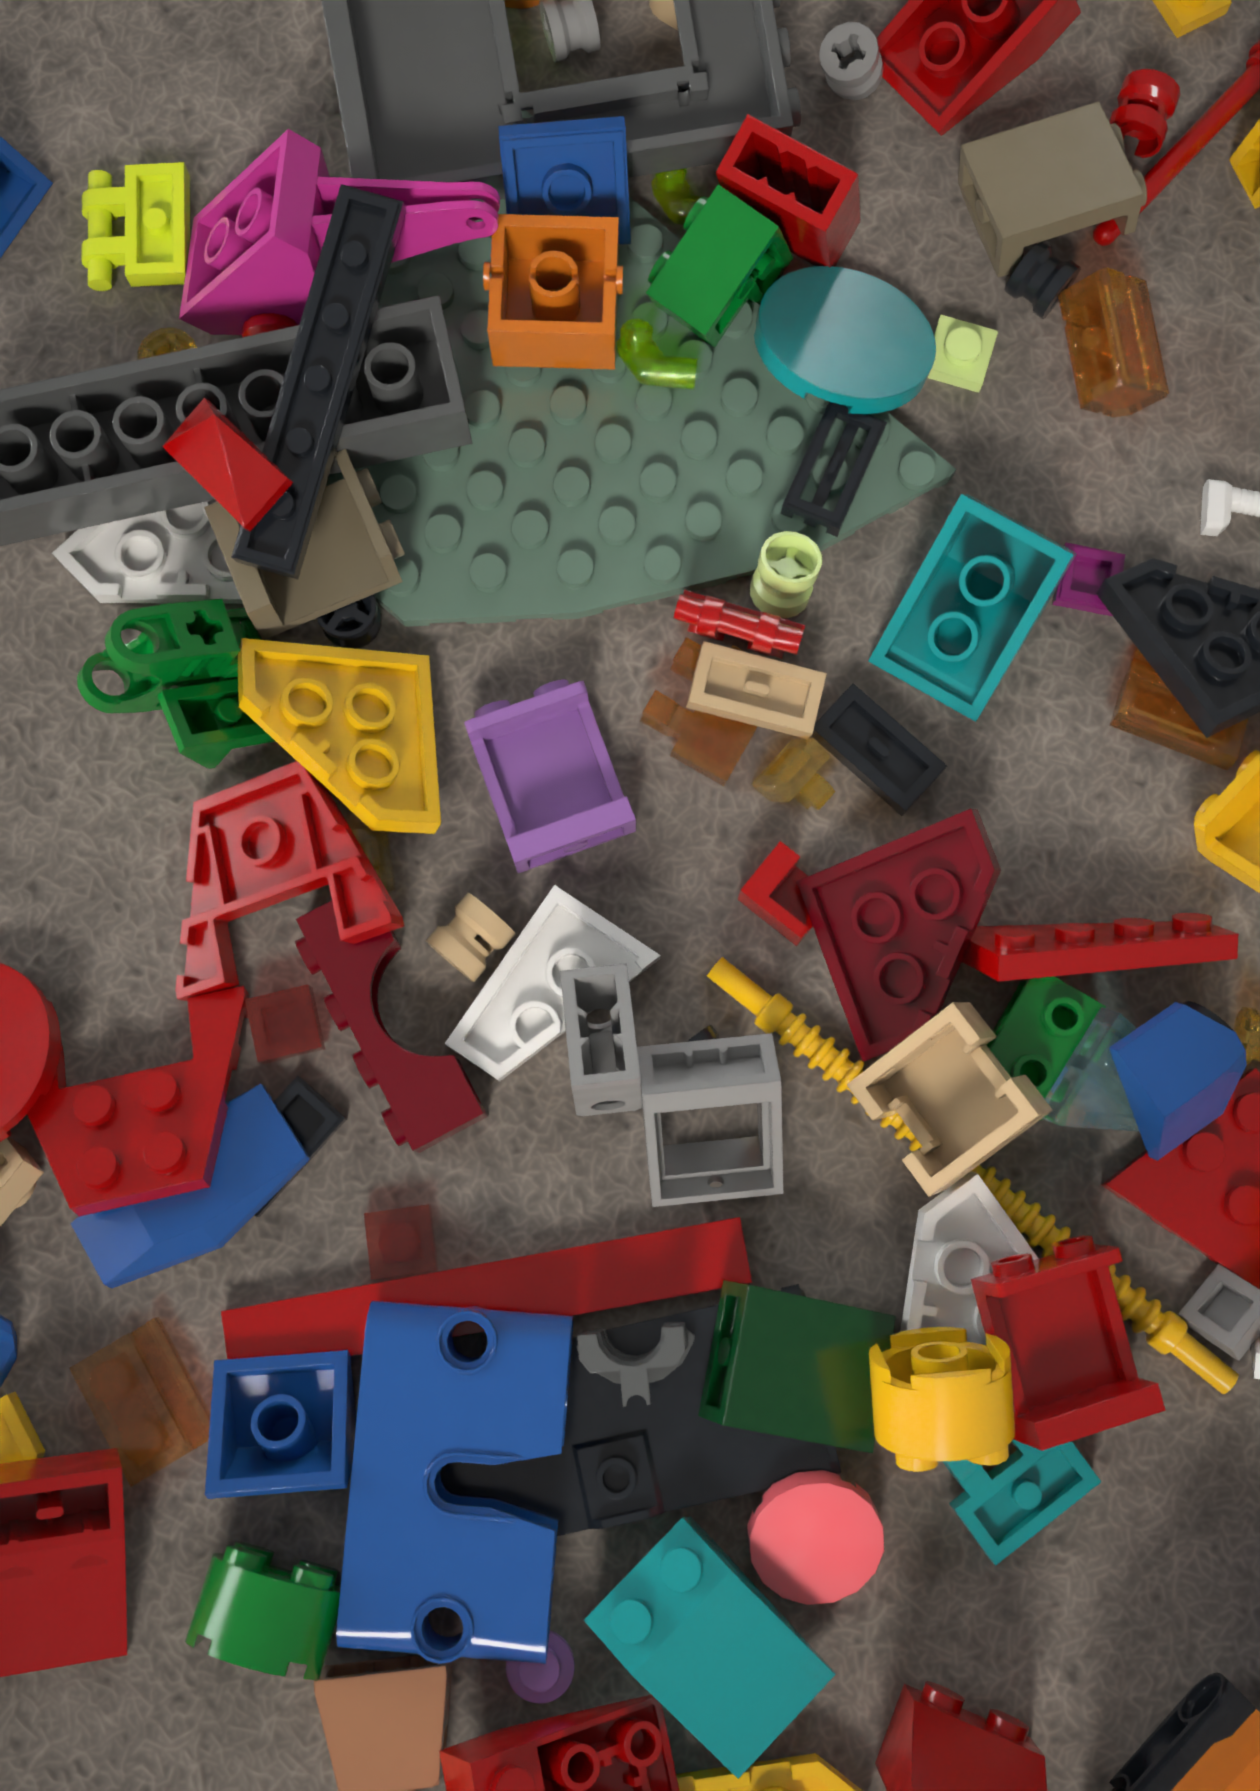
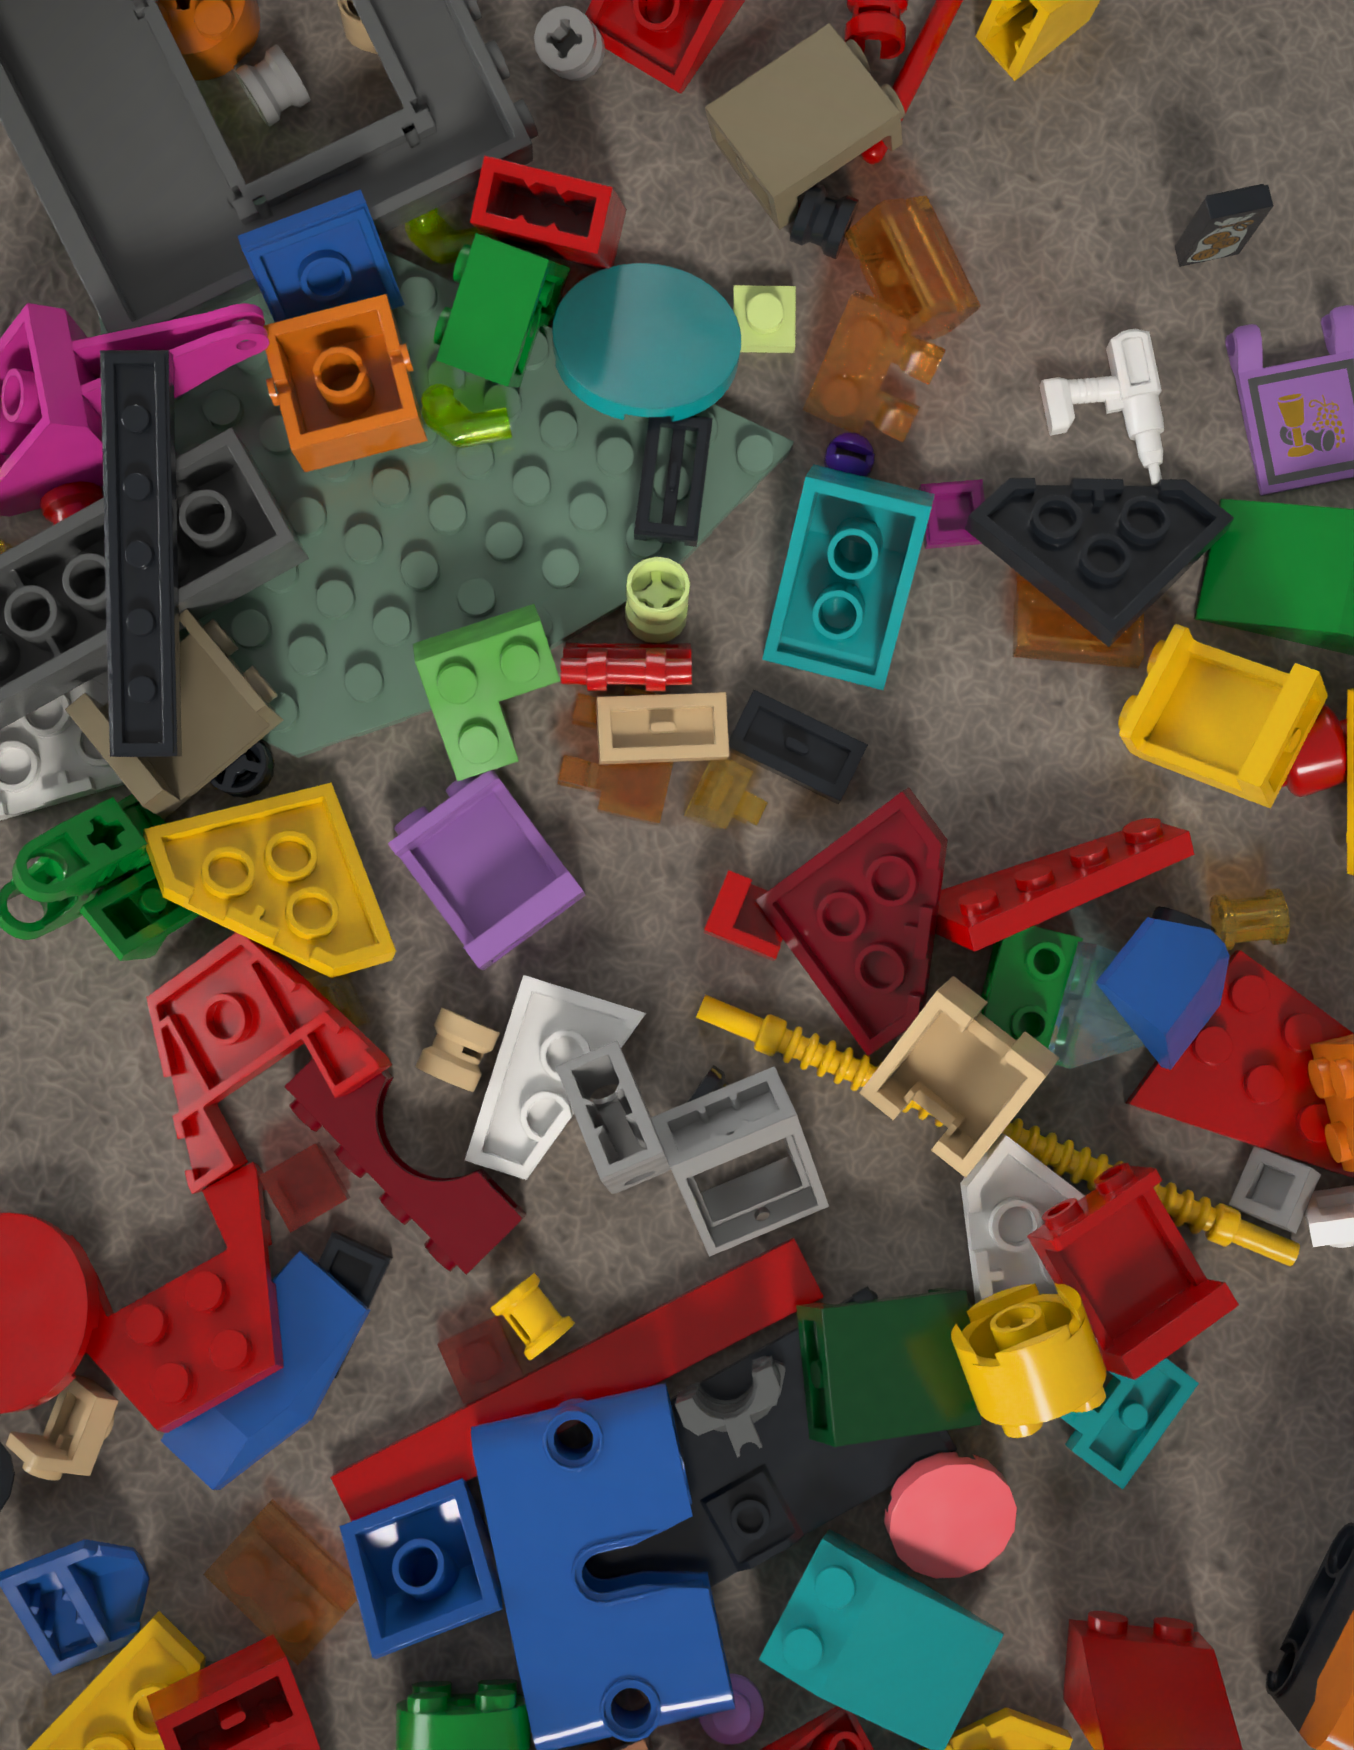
camera: 20 degrees left, 5 degrees up
(227, 464) = (76, 666): red slope -> none
(463, 1213) = (532, 1316): none -> yellow bush
(590, 586) = (471, 673): none -> bright green brick
(1012, 486) = (855, 443): none -> dark purple hinge
(1037, 414) = (857, 363): none -> clear orange plate

